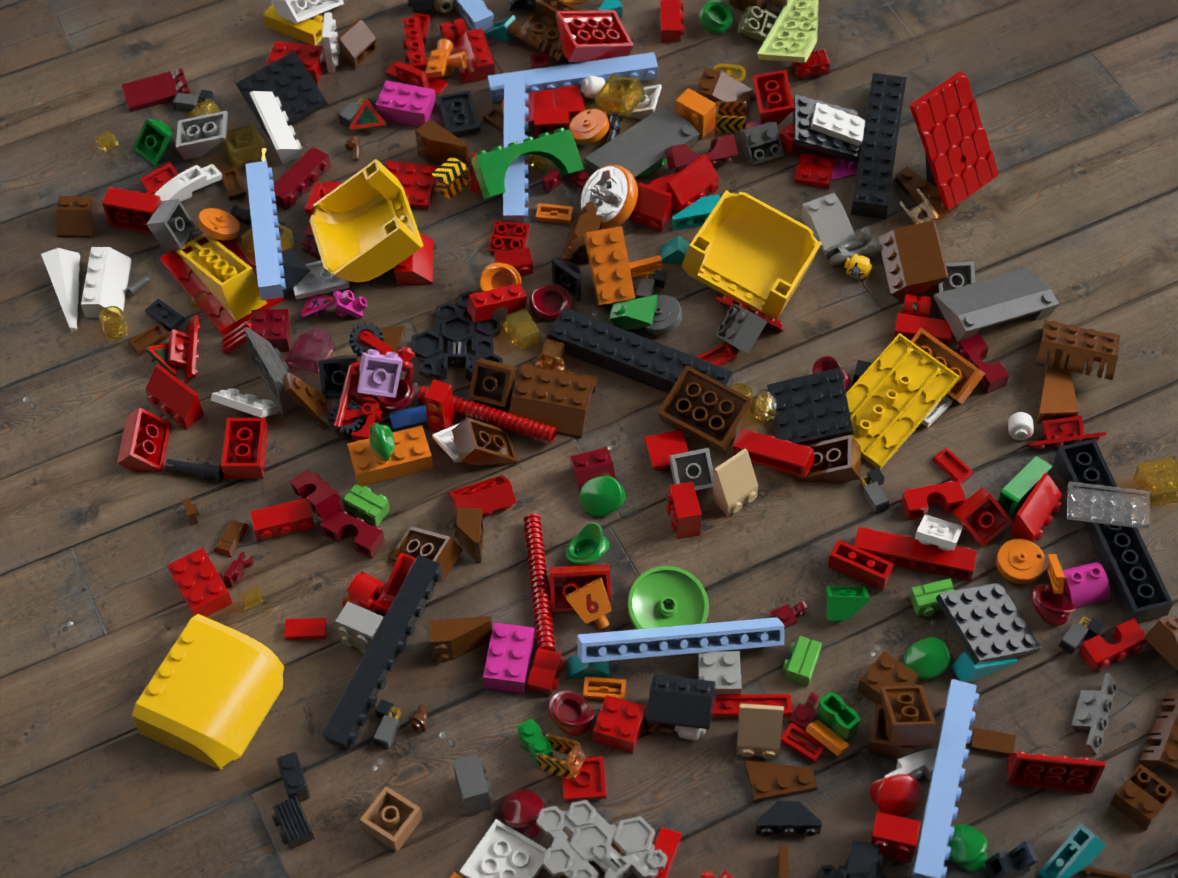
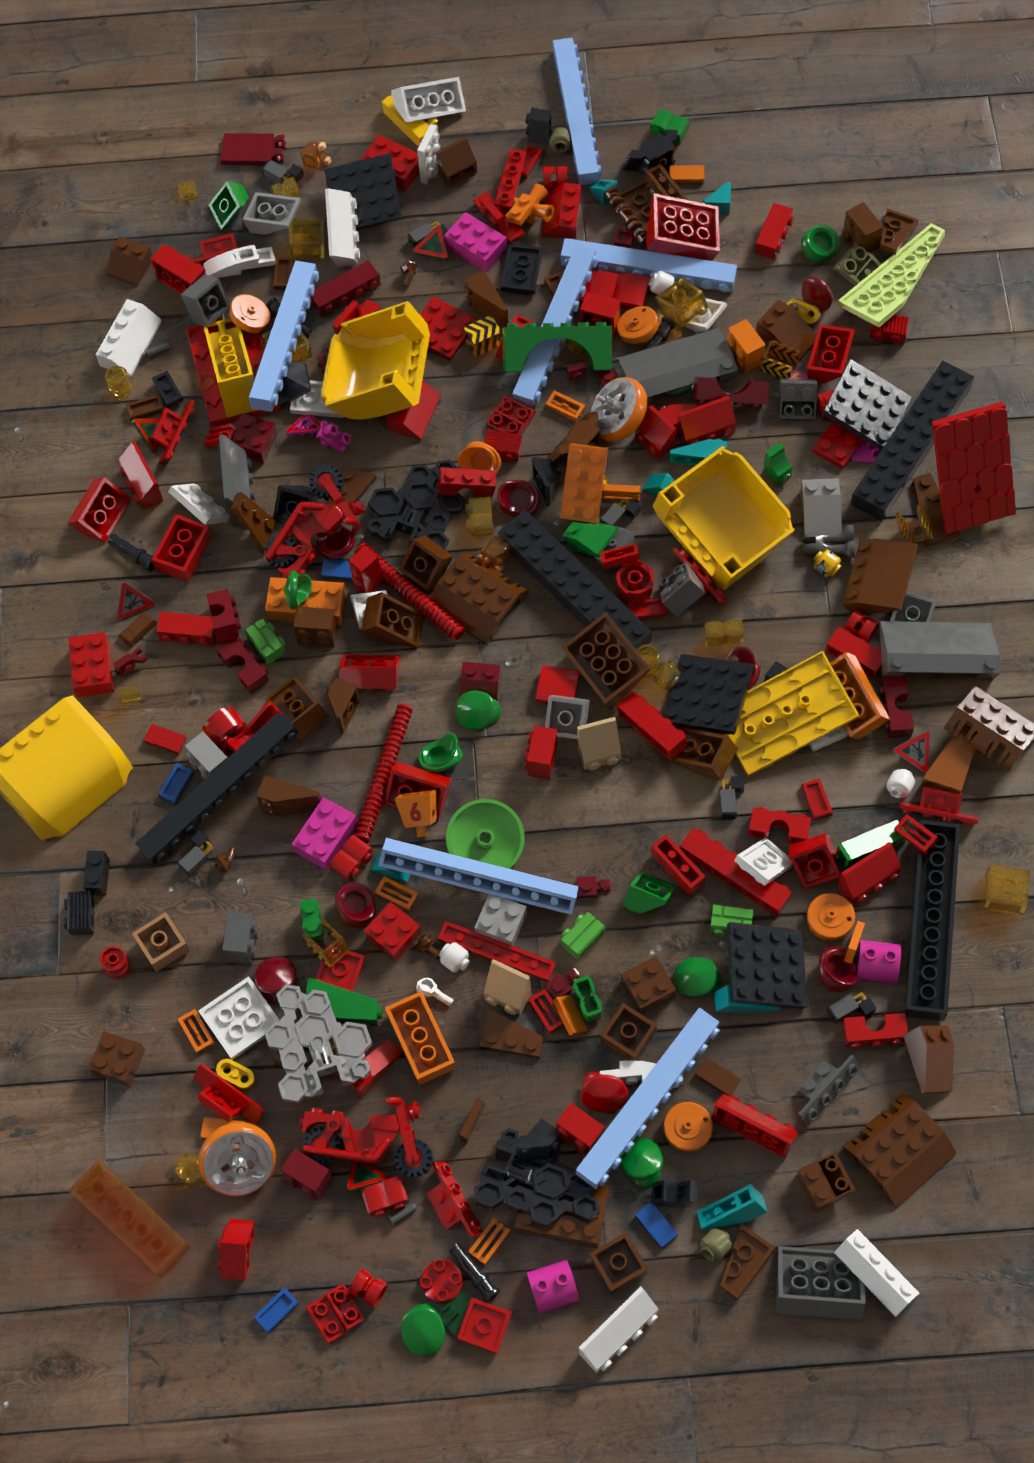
camera: 25 degrees right, 10 degrees up
(64, 274) = (96, 312): white wedge -> none
(191, 510) = (112, 592): reddish brown plate -> none
(214, 513) = (131, 601): none -> piece
(218, 77) = (314, 154): none -> clear orange piece
(310, 348) = (281, 469): clear pink slope -> none
(335, 666) = (176, 784): none -> blue tile
(352, 856) = (115, 962): none -> red wheel
(379, 373) = (321, 521): lavender plate -> none
(412, 473) = (315, 626): none -> reddish brown brick
(609, 806) = (348, 1005): none -> green slope
(672, 317) = (620, 555): none -> red tile
(678, 764) = (430, 989): none -> white plate
(681, 701) = (451, 934): black slope -> none
(695, 336) = (634, 582): none -> red brick
(696, 812) = (420, 1038): none -> orange brick
(736, 52) = (817, 293): none -> dark red piece
(773, 197) = (776, 465): none -> green arch
(788, 819) = (497, 1075): black slope -> none
(796, 354) = (727, 633): none -> clear yellow brick
(838, 124) = (877, 406): white plate -> none
(907, 715) = (642, 1025): reddish brown slope -> none
(990, 797) = (688, 1127): none -> orange wheel
(1019, 394) = (916, 751): none -> piece
(1061, 463) = (928, 844): none -> red tile
(1108, 505) = (934, 896): clear plate -> none

